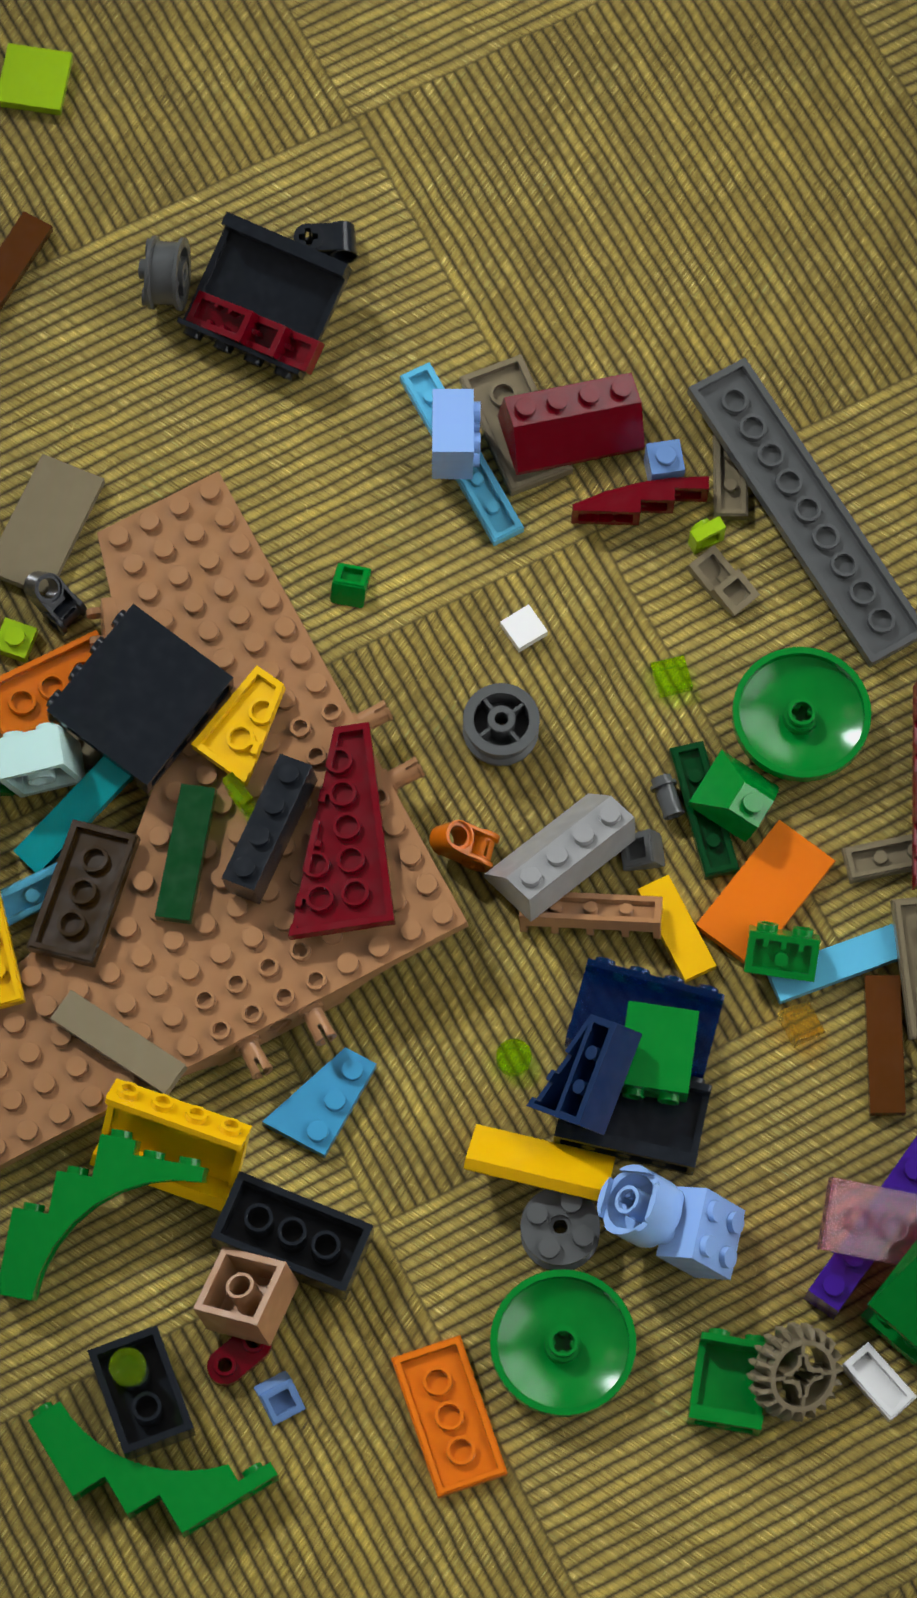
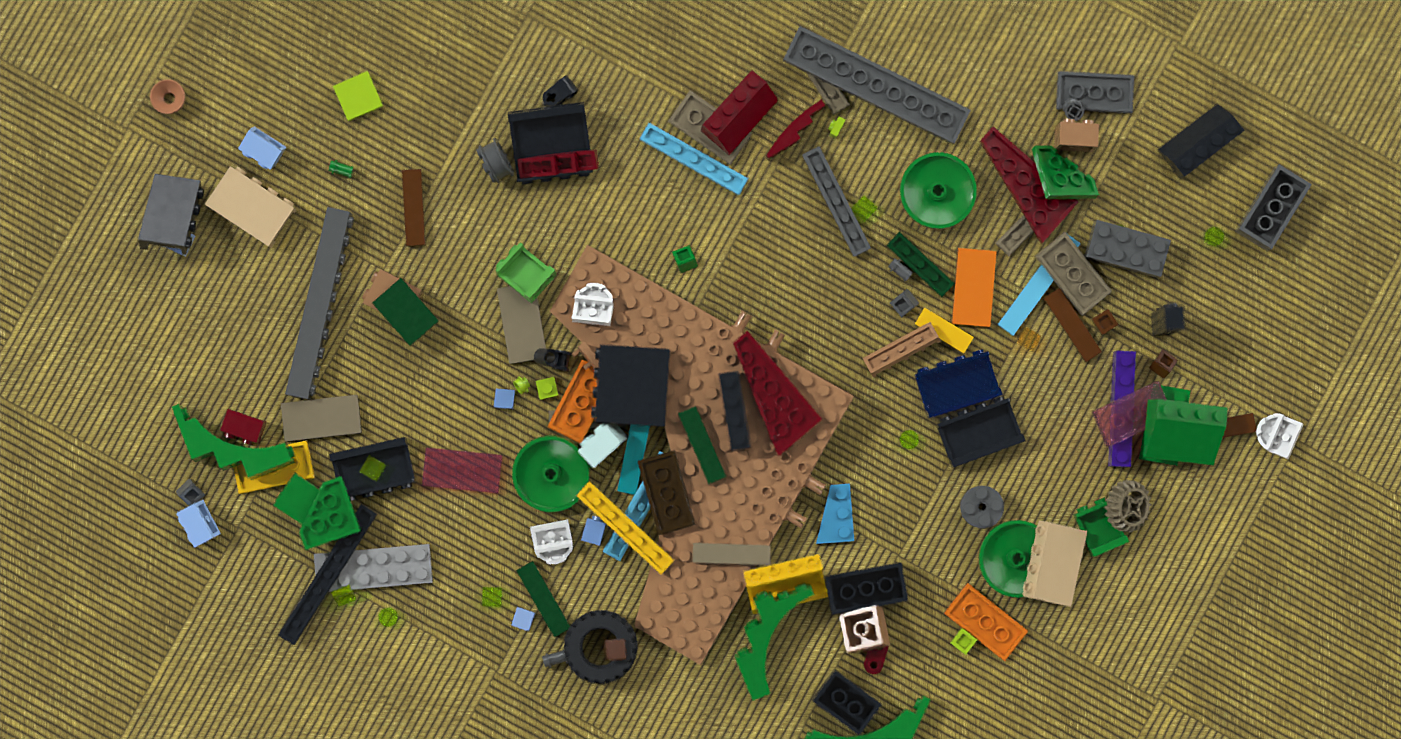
camera: 35 degrees left, 15 degrees up
(98, 454) = (525, 272): none -> bright green panel
(127, 1367) = (835, 697): clear neon green tile -> none
(164, 555) = (593, 305): none -> white slope
(239, 794) = (709, 402): clear neon green tile -> none
(242, 725) = (687, 367): yellow wing -> none
(279, 1397) = (905, 662): medium blue slope -> none
(392, 1421) = (963, 641): none -> lime plate
(455, 433) = (688, 156): light blue brick -> none
(470, 847) = (825, 354): orange piece -> none
(501, 743) = (802, 296): dark grey wheel -> none
(523, 628) = (780, 228): white tile -> none
(538, 1162) = (954, 483): yellow tile -> none
(563, 854) = (870, 330): light grey slope -> none
(590, 1076) = (955, 432): dark blue wedge -> none
(618, 1386) = (1054, 563): none -> tan panel
(635, 640) = (836, 201): none -> dark grey plate
(640, 1206) = (1016, 478): light blue brick -> none
(663, 1054) = (975, 398): green panel -> none
(664, 460) = (795, 104): medium blue brick -> none
(705, 1235) = (1048, 470): light blue brick -> none
(722, 582) = (858, 145): dark tan slope -> none
(734, 796) = (932, 250): green slope -> none
(782, 951) = (1001, 312): green bracket -> none
(878, 1382) = (1164, 483): white tile -> none

